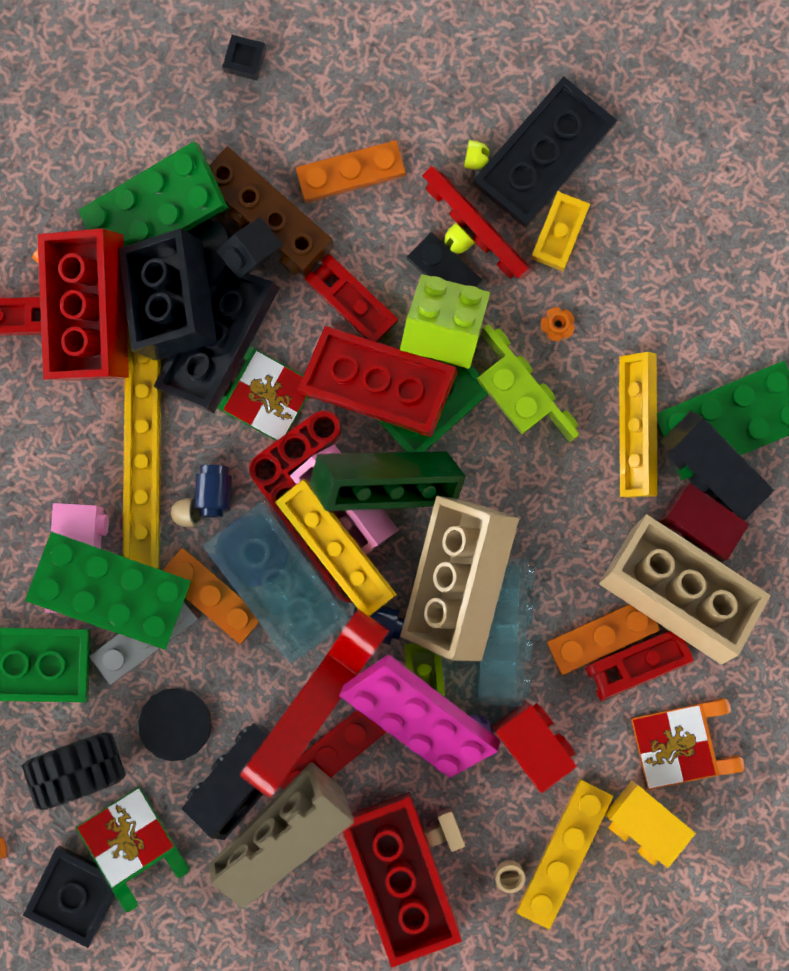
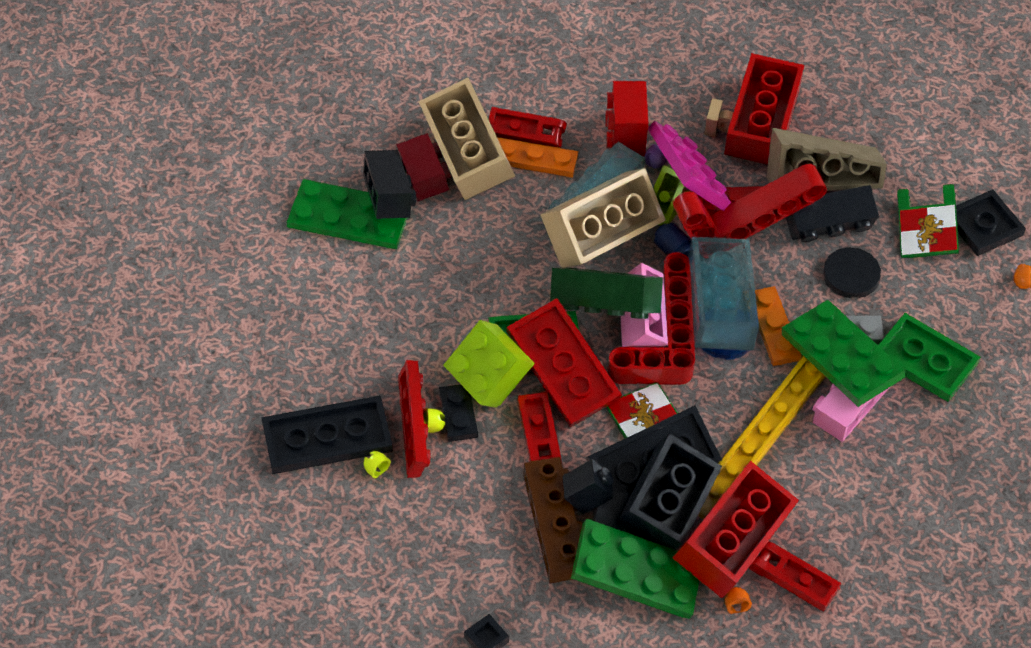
camera: 150 degrees left, 30 degrees down
(73, 771) = (936, 269): black tyre -> none
(181, 513) = (756, 380): tan hinge -> none
(213, 490) = (726, 378): dark blue brick -> none
(336, 548) = (670, 264): yellow plate -> none
(350, 171) = (471, 513): orange plate -> none
(509, 882) = (695, 79): tan hinge -> none
(518, 393) = (474, 299): lime bracket -> none
(558, 333) = (414, 337): orange plate -> none
(560, 231) = (361, 380): yellow plate -> none
(564, 854) = (659, 69): yellow plate -> none
(638, 425) = (412, 243): yellow plate -> none
(649, 824) = (591, 51): yellow brick -> none
(678, 745) = (534, 80): flag -> none

